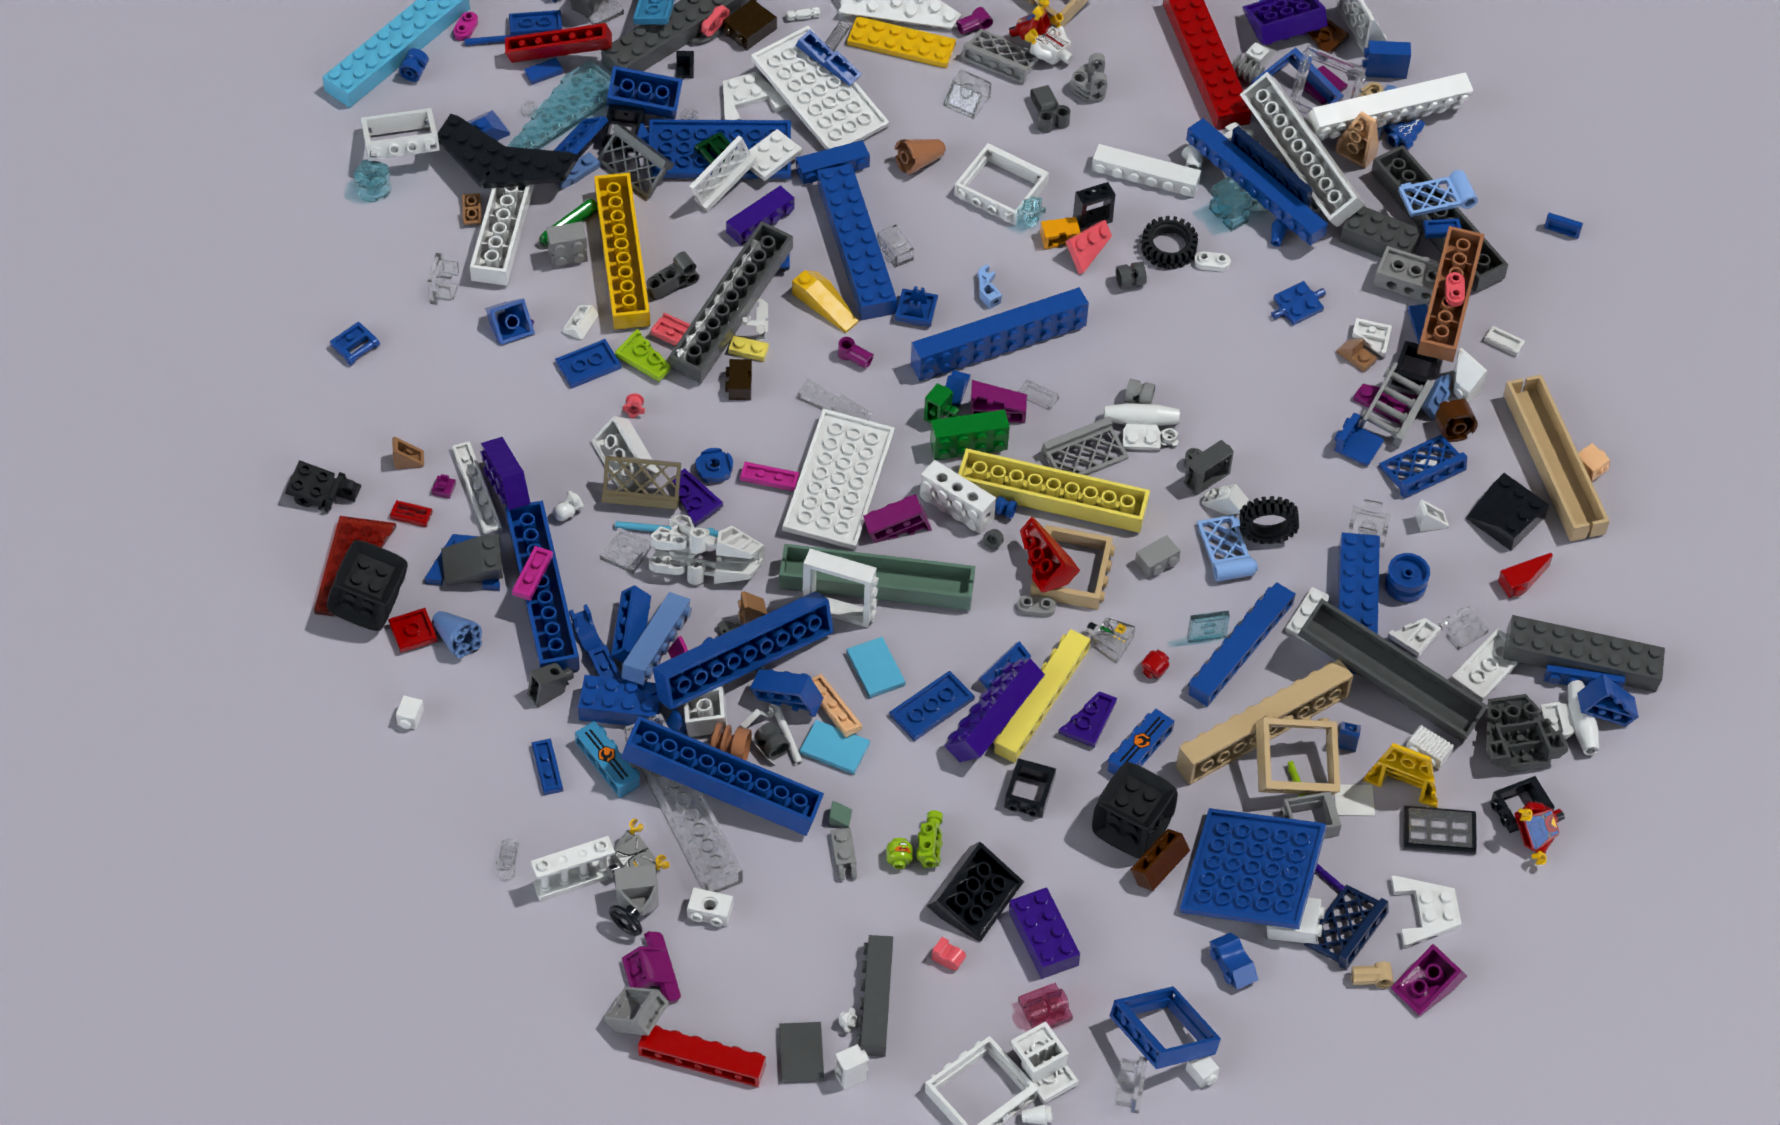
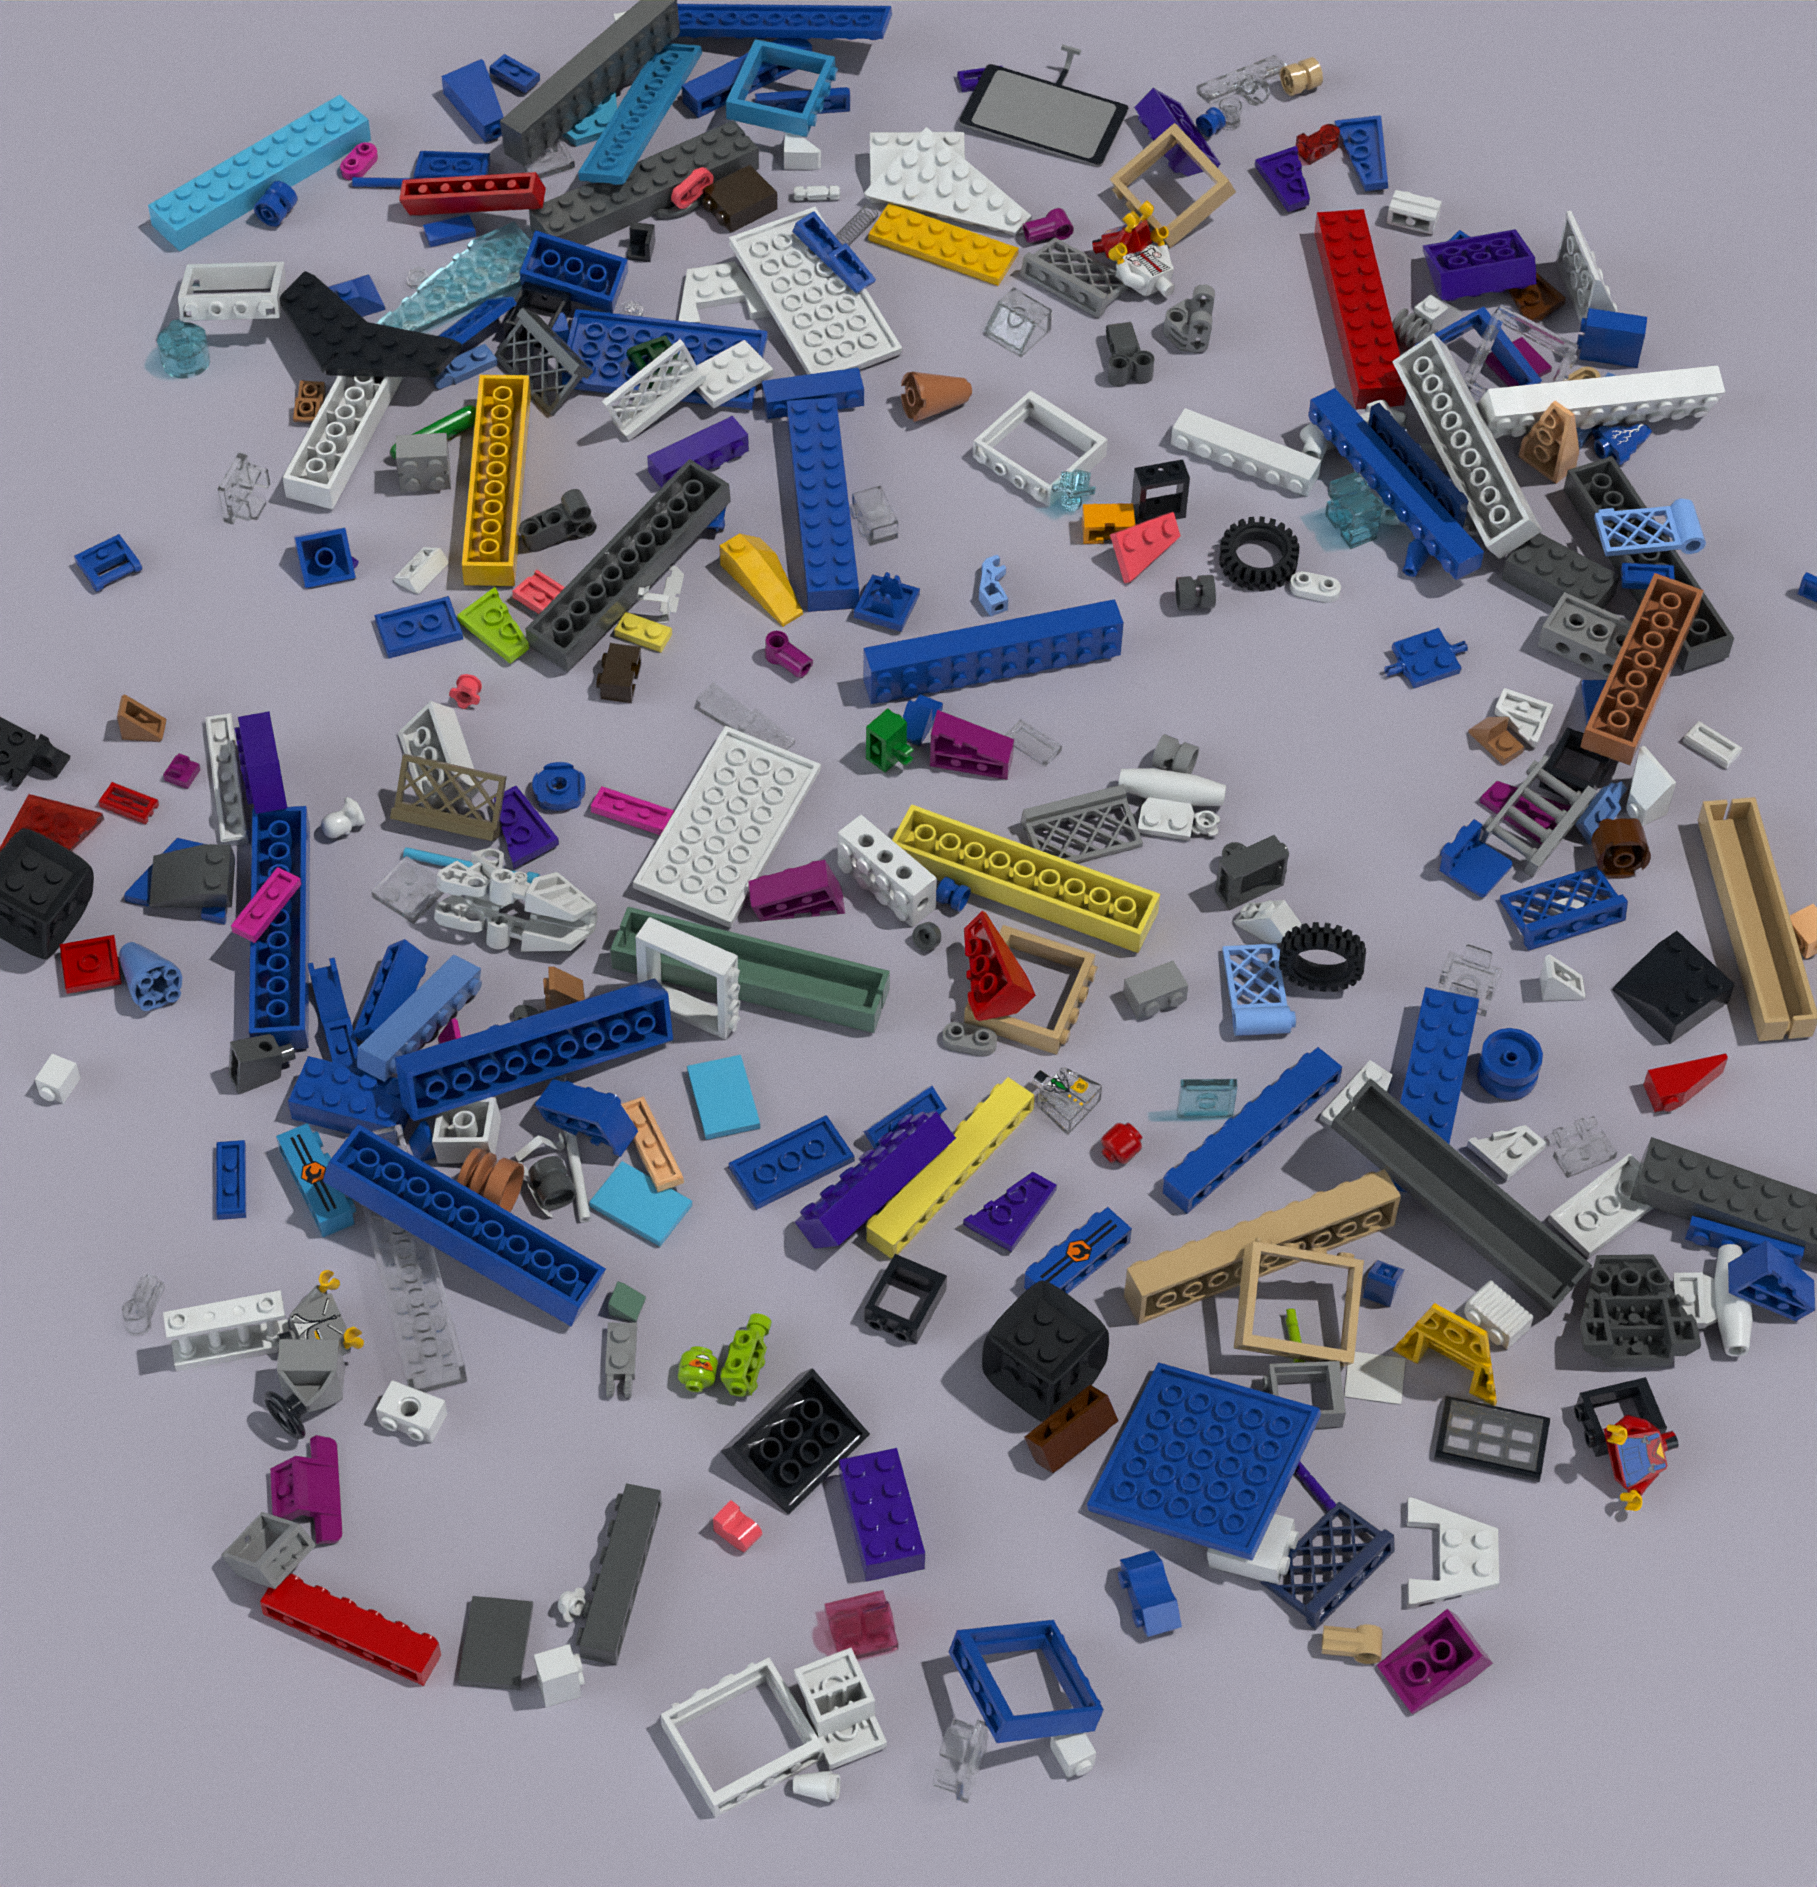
camera: 10 degrees right, 0 degrees up
(977, 432) = (930, 783): green brick -> none
(1455, 287) = (1647, 660): coral plate -> none

